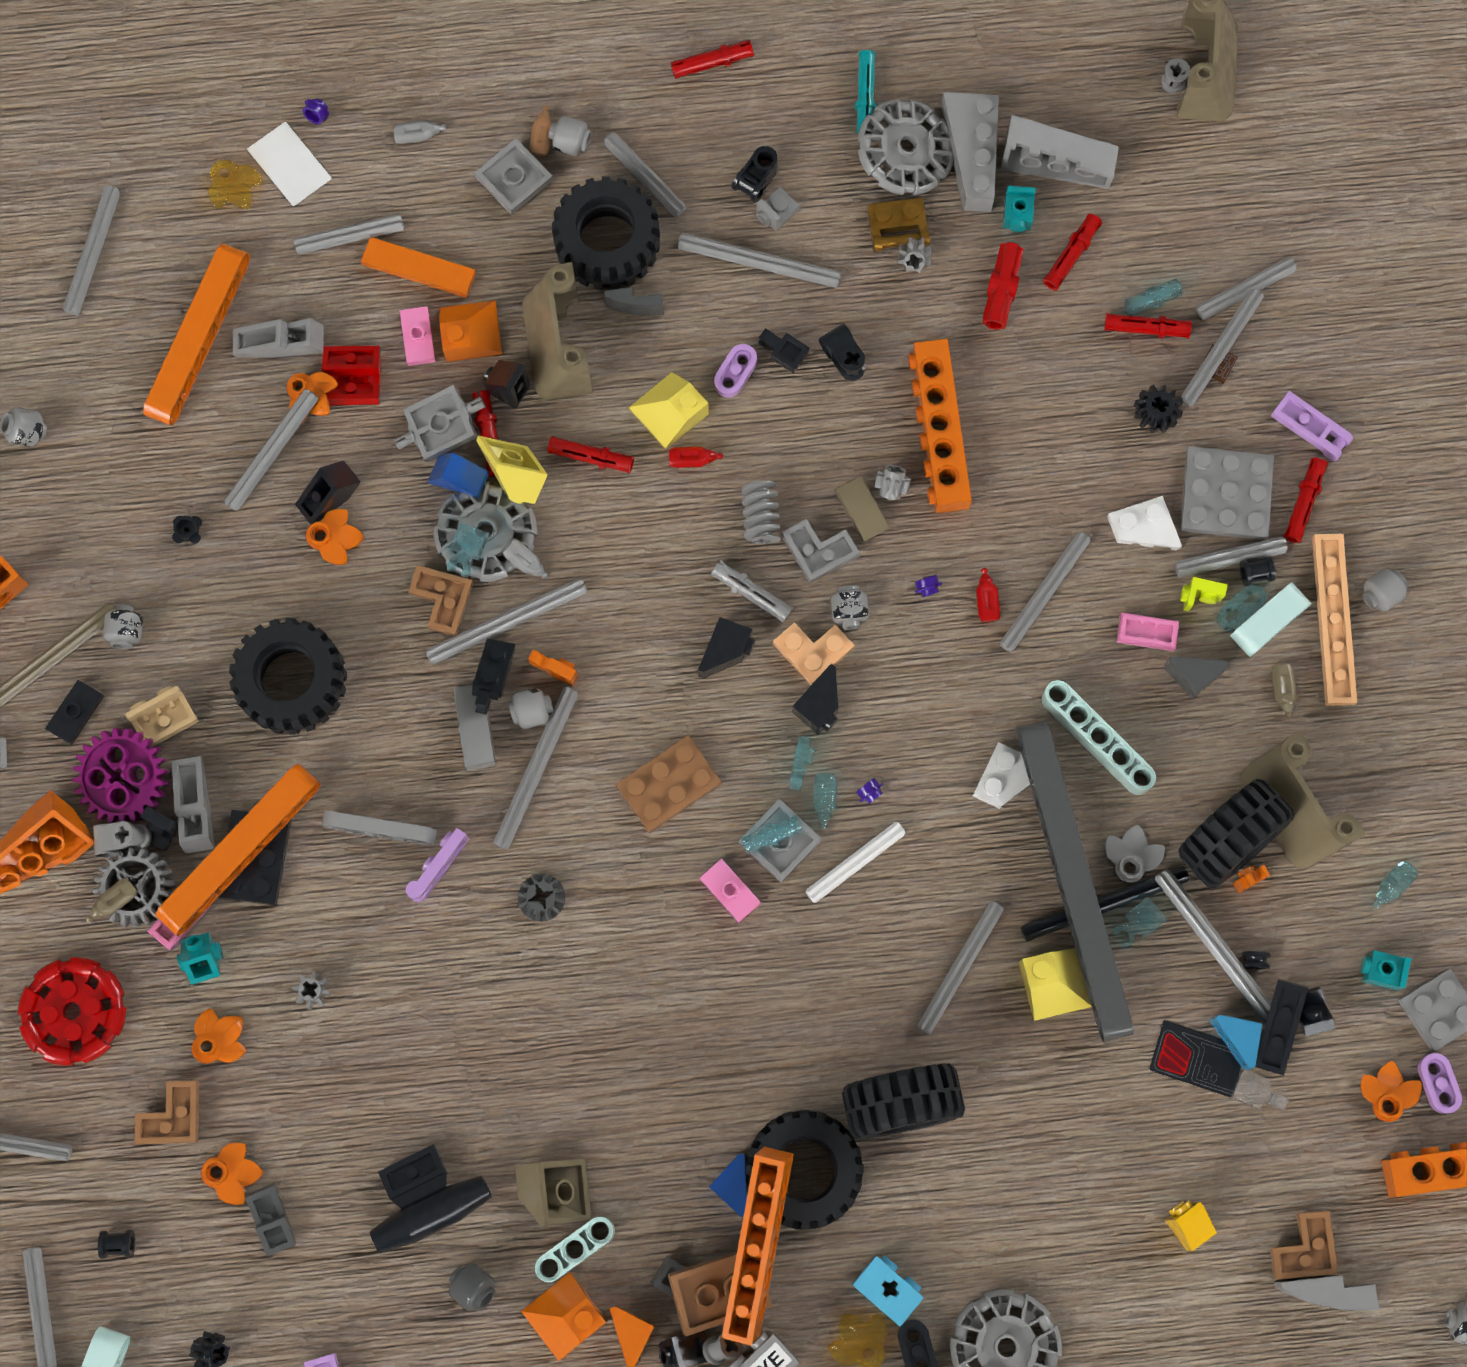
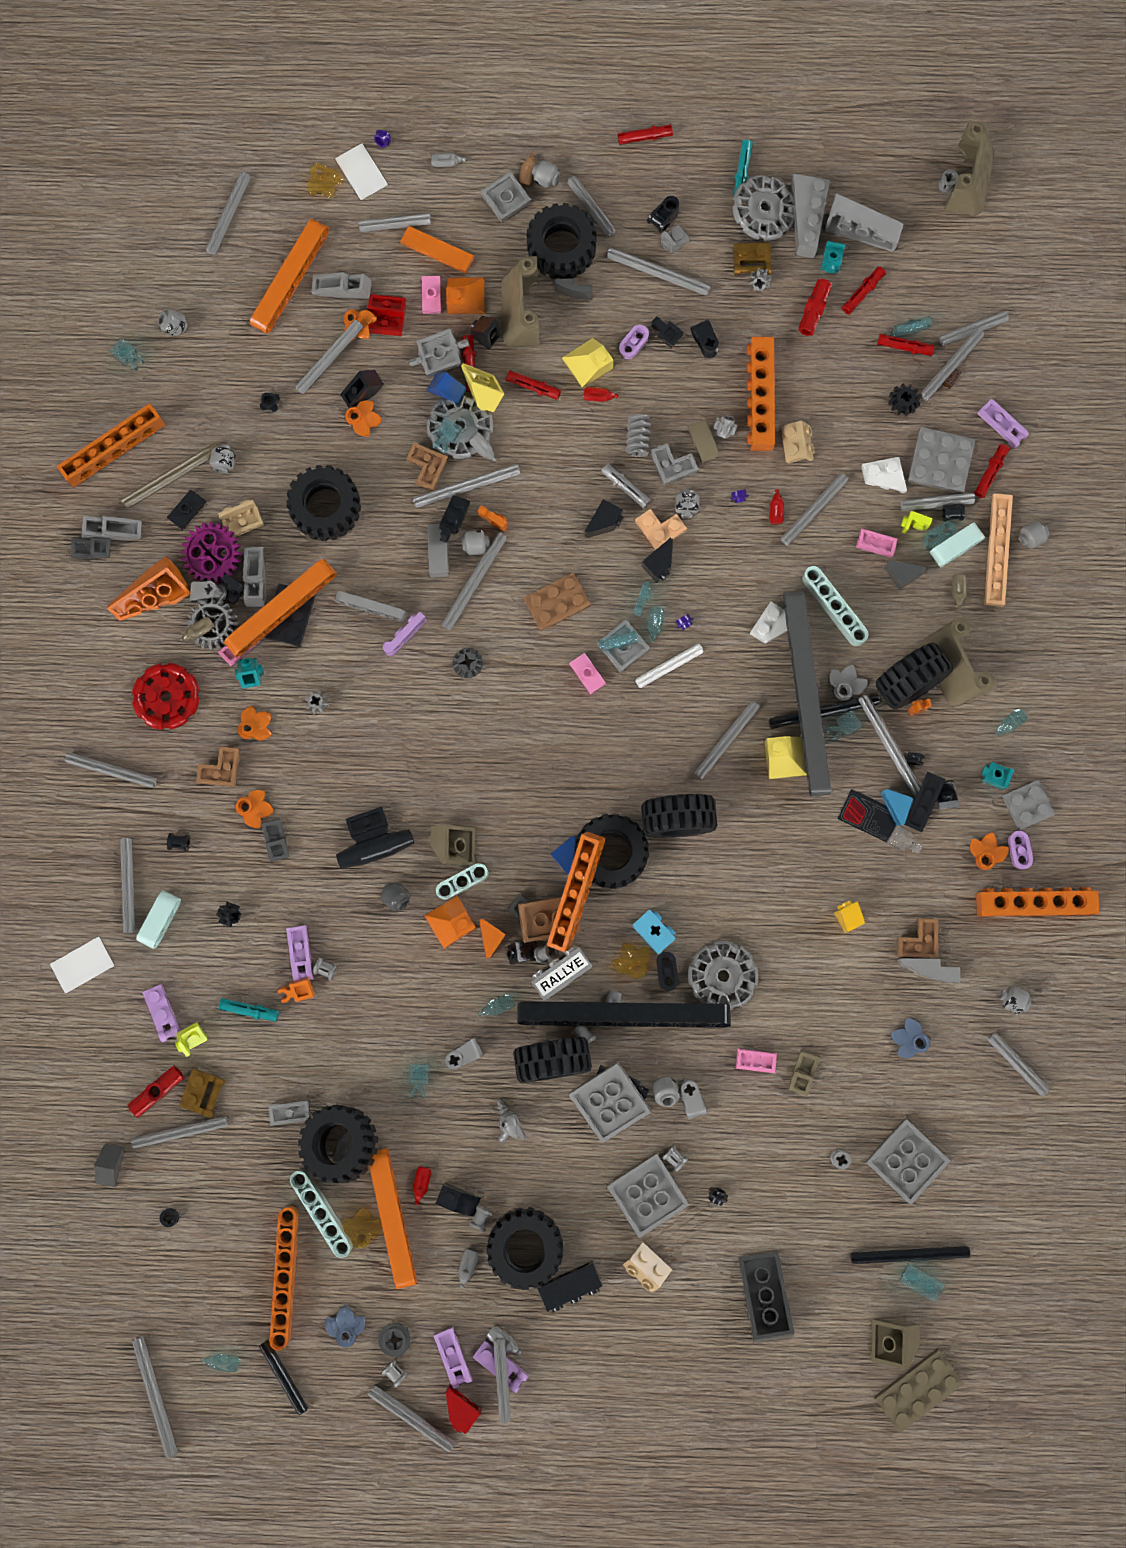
camera: 10 degrees right, 5 degrees up
(1005, 492) = (797, 441): none -> tan bracket

